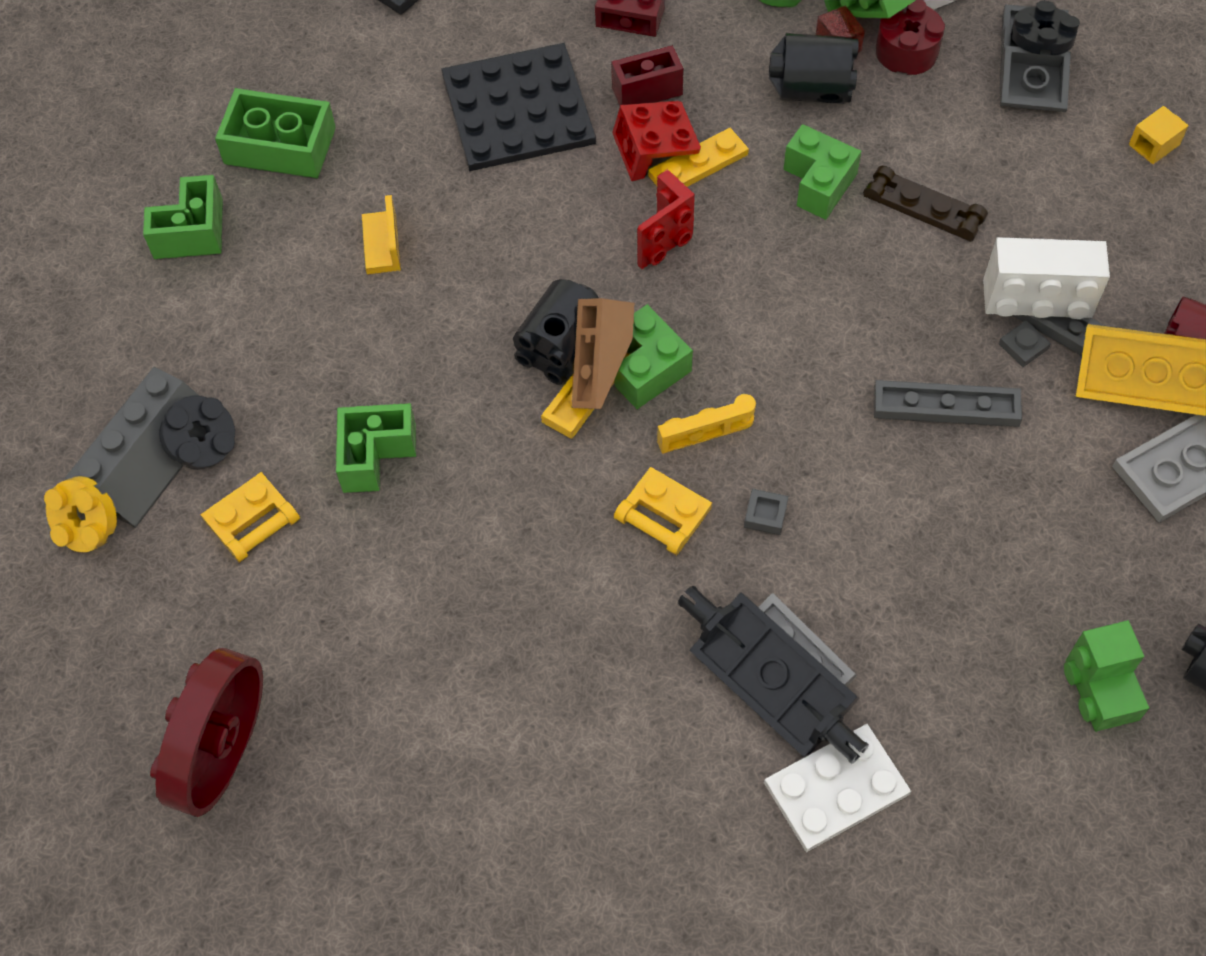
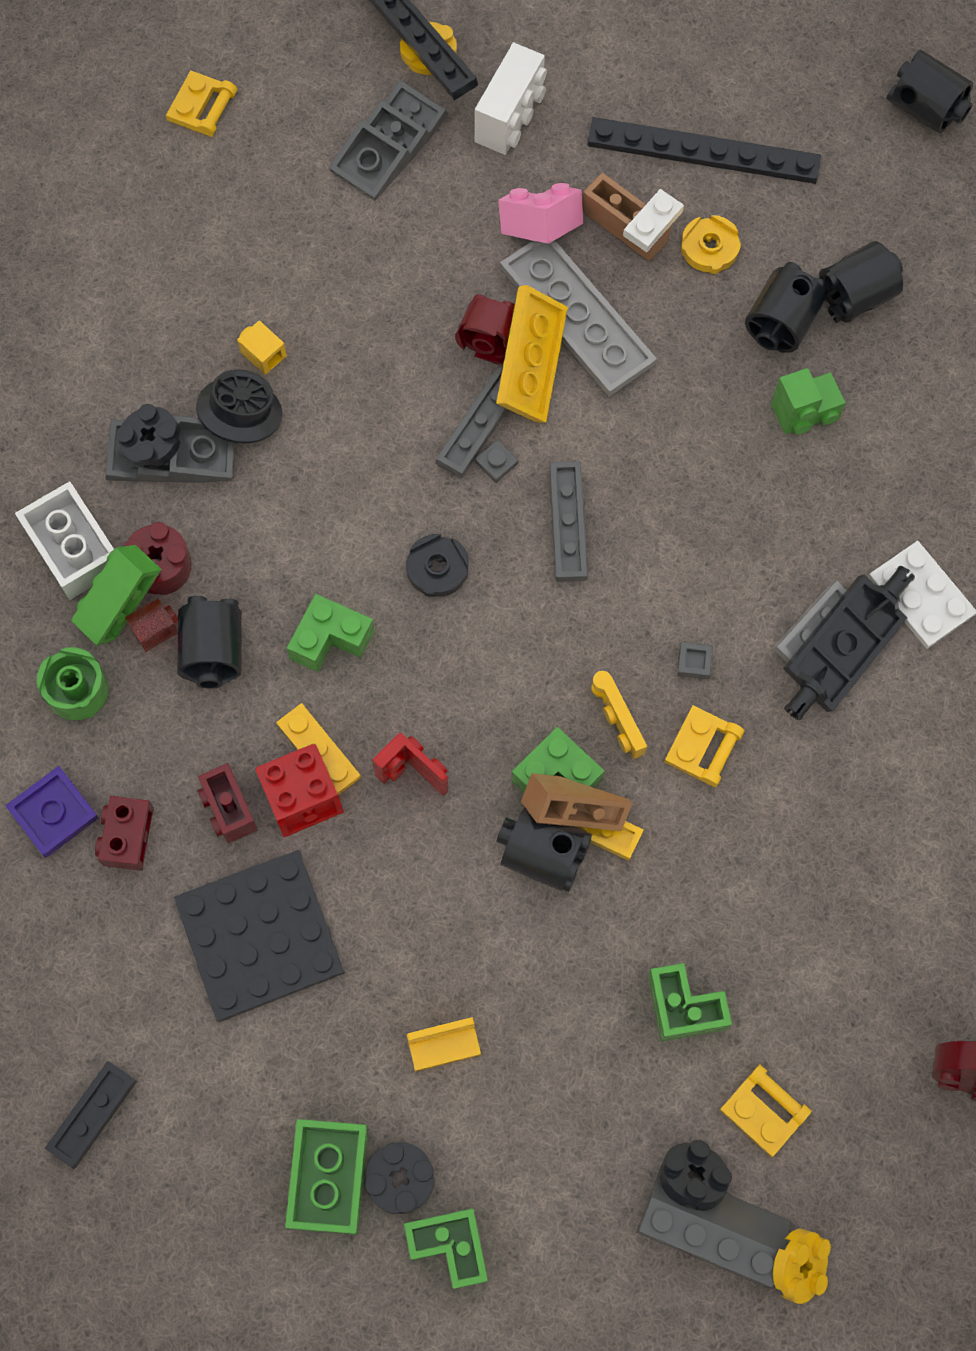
camera: 100 degrees left, 10 degrees up
(263, 181) = (419, 1172): none -> black plate
(892, 291) = (442, 549): none -> black plate
(925, 204) = (351, 544): dark brown plate -> none
(1045, 277) = (457, 434): white brick -> none
(1083, 111) = (239, 407): none -> black wheel

